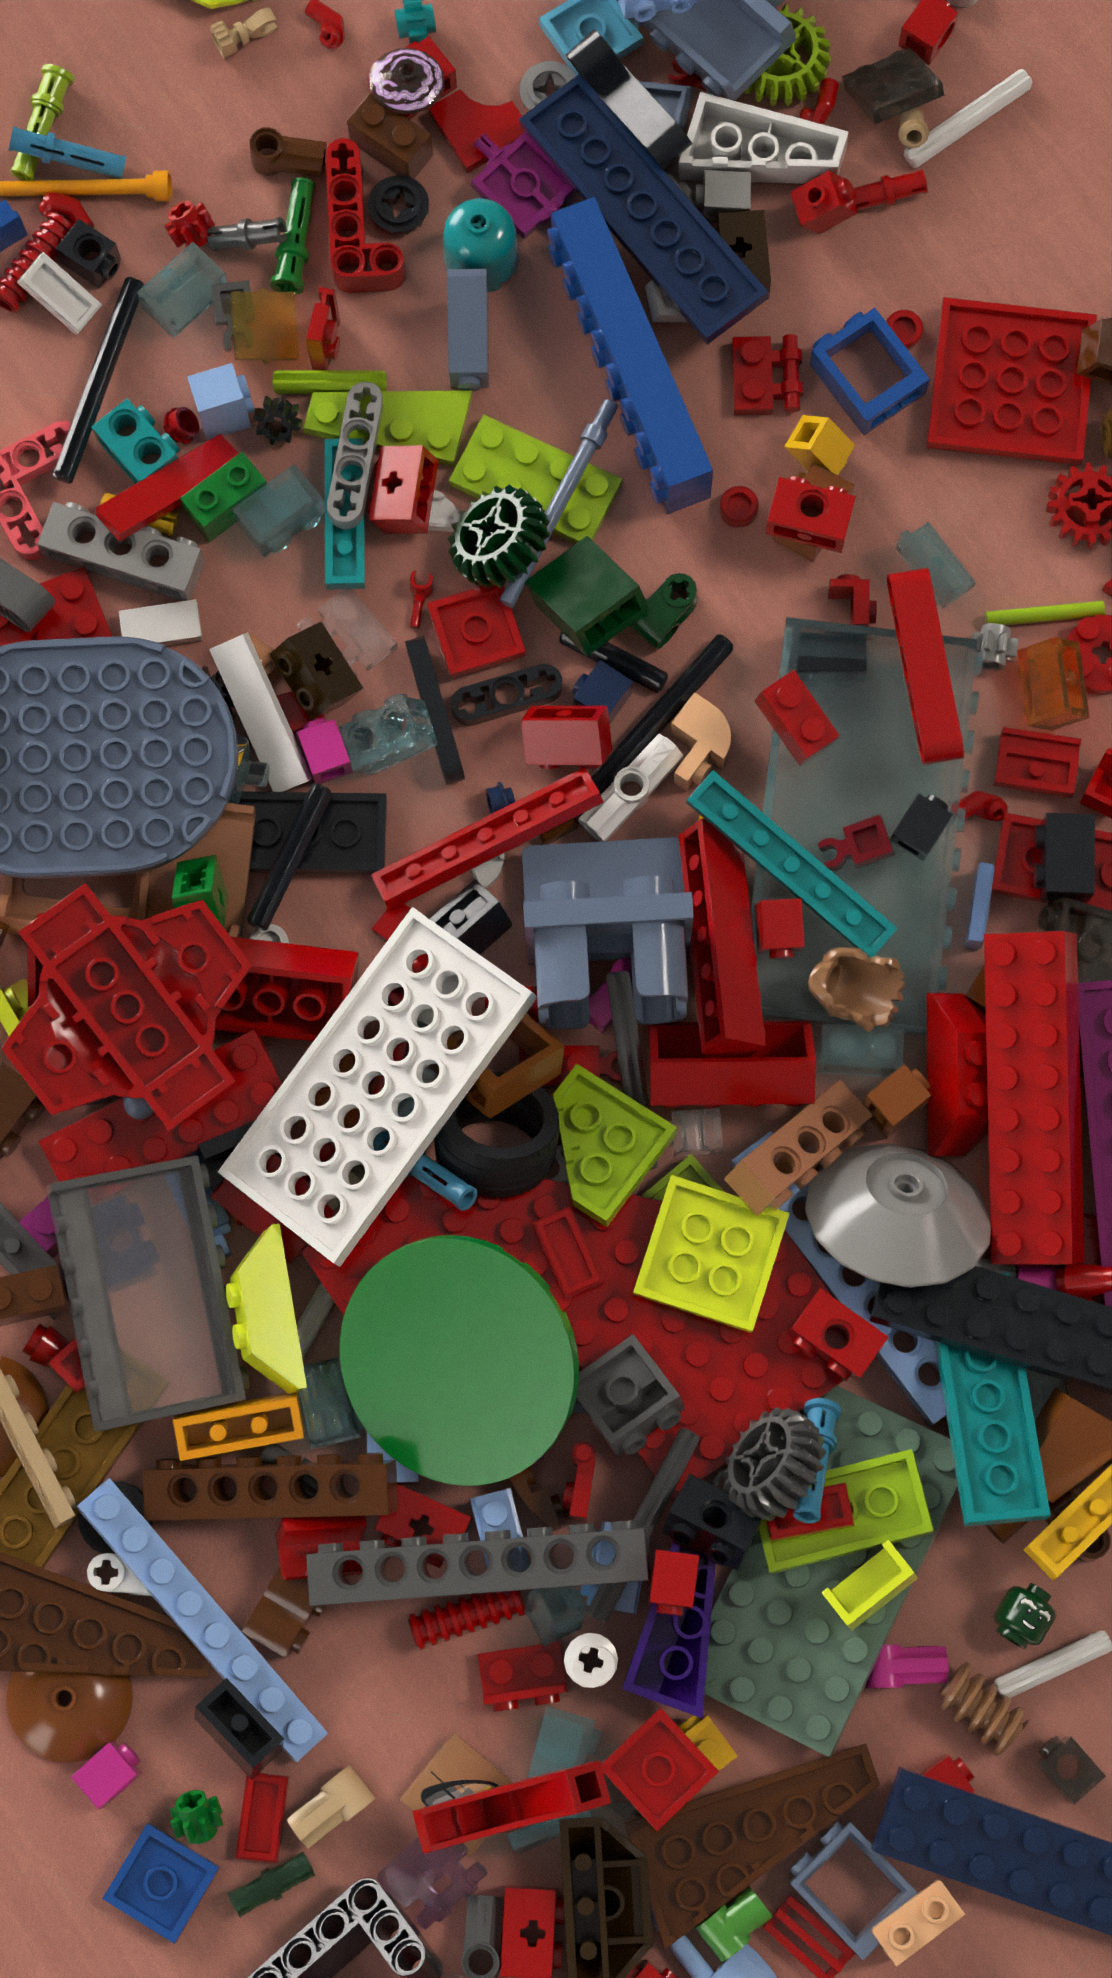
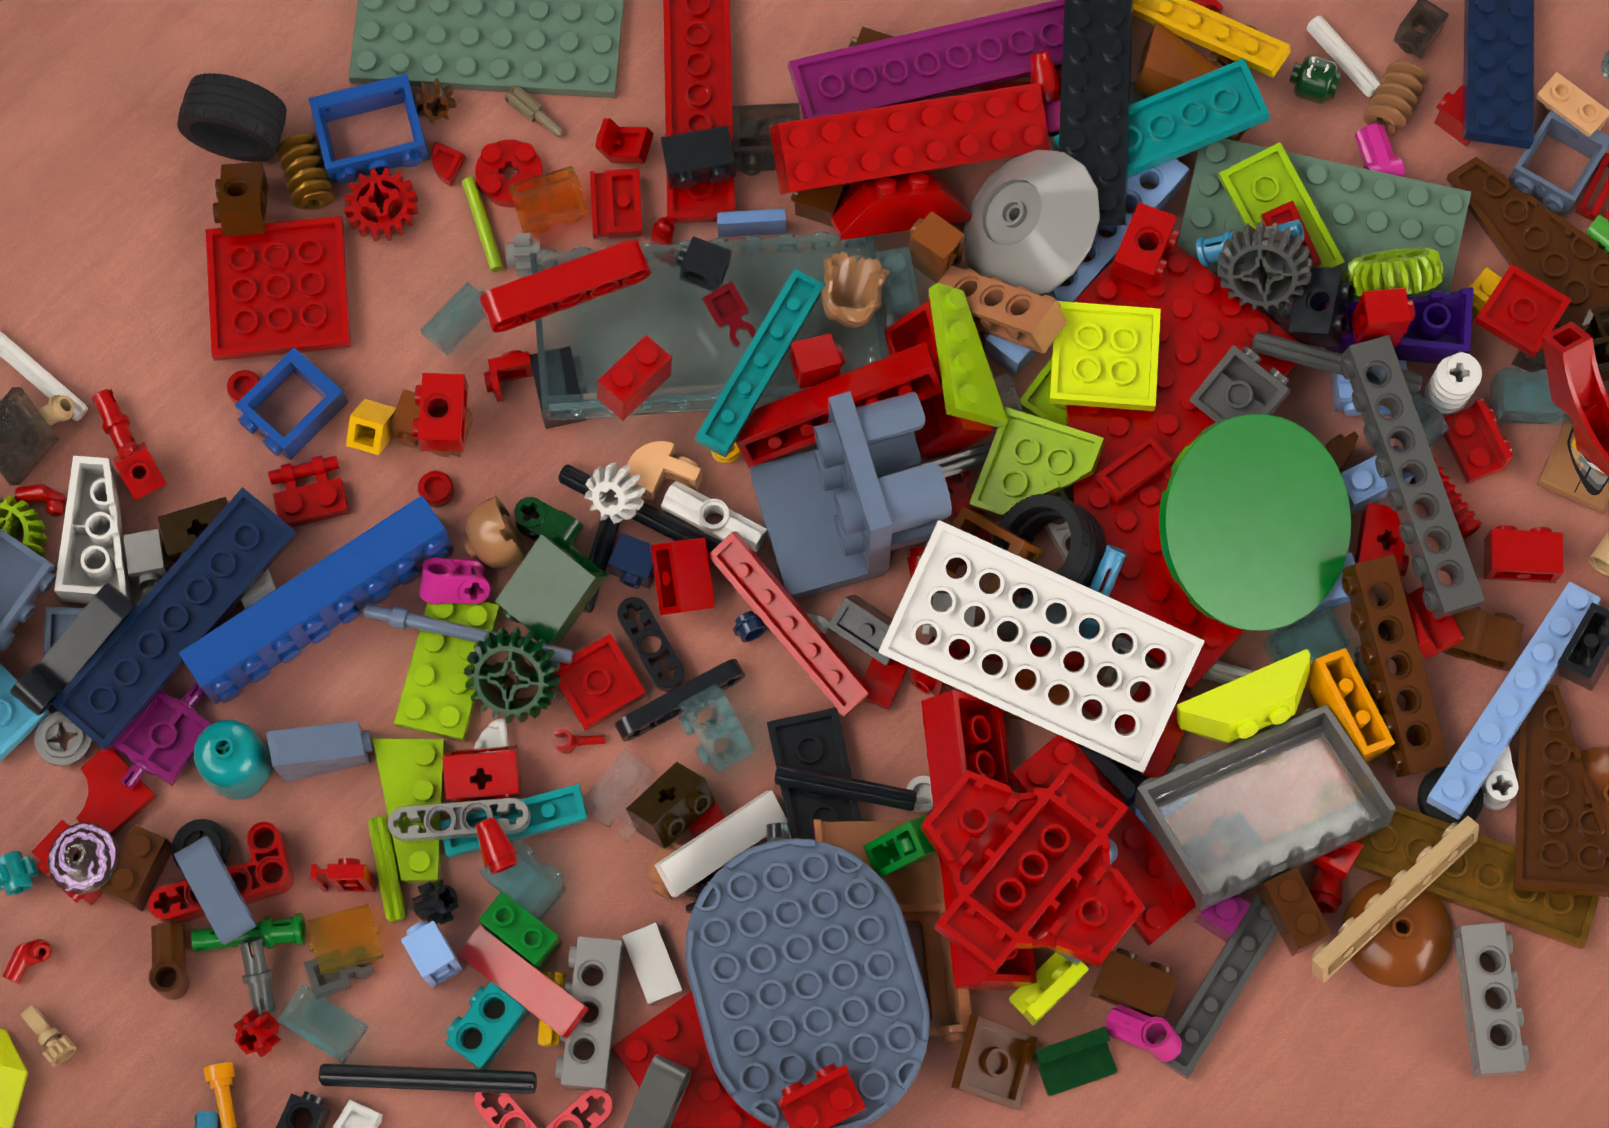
camera: 105 degrees left, 5 degrees down
(181, 424) = (456, 992): red plate -> none
(310, 479) = (495, 847): none -> red cone
(324, 750) = (738, 784): dark pink brick -> none
(337, 199) = (215, 890): none -> sand blue beam
(371, 1688) = (1523, 554): none -> red brick
(578, 1494) = (1323, 419): red plate -> none
(621, 499) = (450, 581): none -> dark pink piece
(663, 548) = (493, 535): none -> medium nougat cylinder
(677, 680) = (610, 480): none -> white gear
(685, 79) = (38, 627): red hand -> none
(731, 1084) = (962, 361): none -> lime wing
(733, 1620) = (1406, 268): none -> lime gear
(870, 1586) = (1335, 180): neon yellow panel -> none

